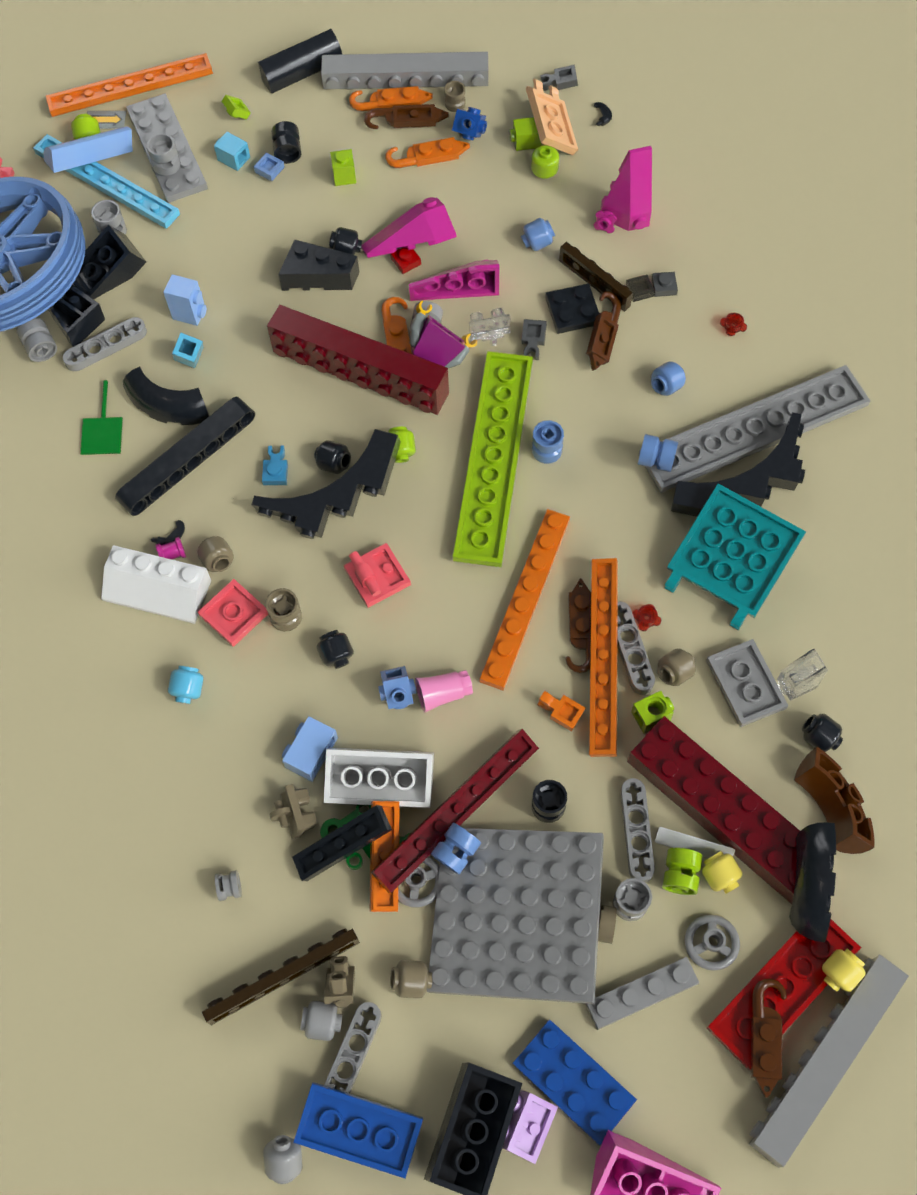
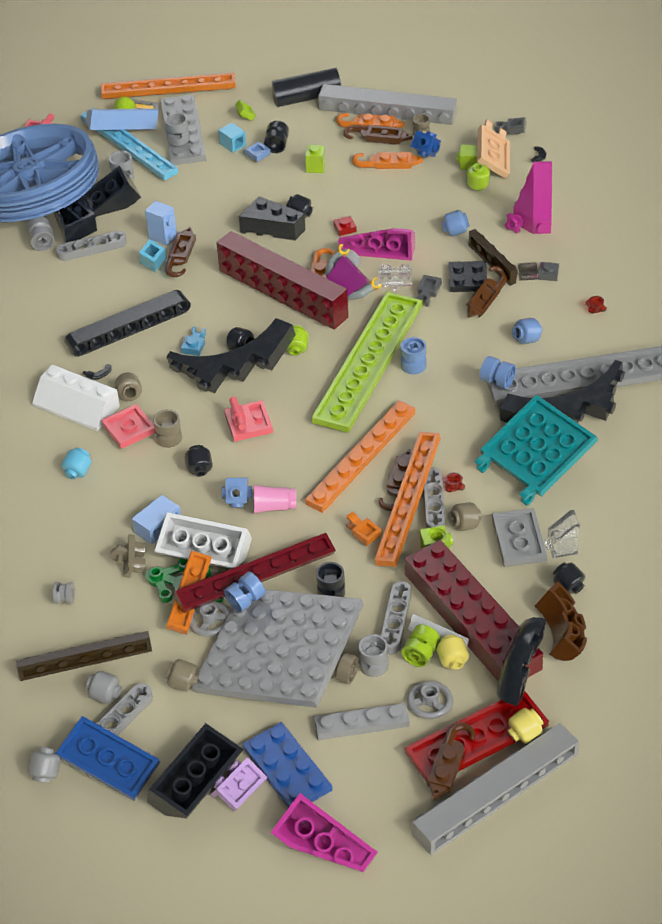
camera: 15 degrees right, 20 degrees down
(102, 434) = (69, 302): green piece -> none
(162, 403) = (122, 286): black brick -> none
(171, 550) = (98, 377): dark pink bush -> none
(219, 335) = (180, 252): none -> reddish brown plate
(339, 982) = (126, 664): dark tan hips -> none
(342, 843) = (158, 575): black plate -> none
(420, 224) = (366, 201): dark pink wedge -> none

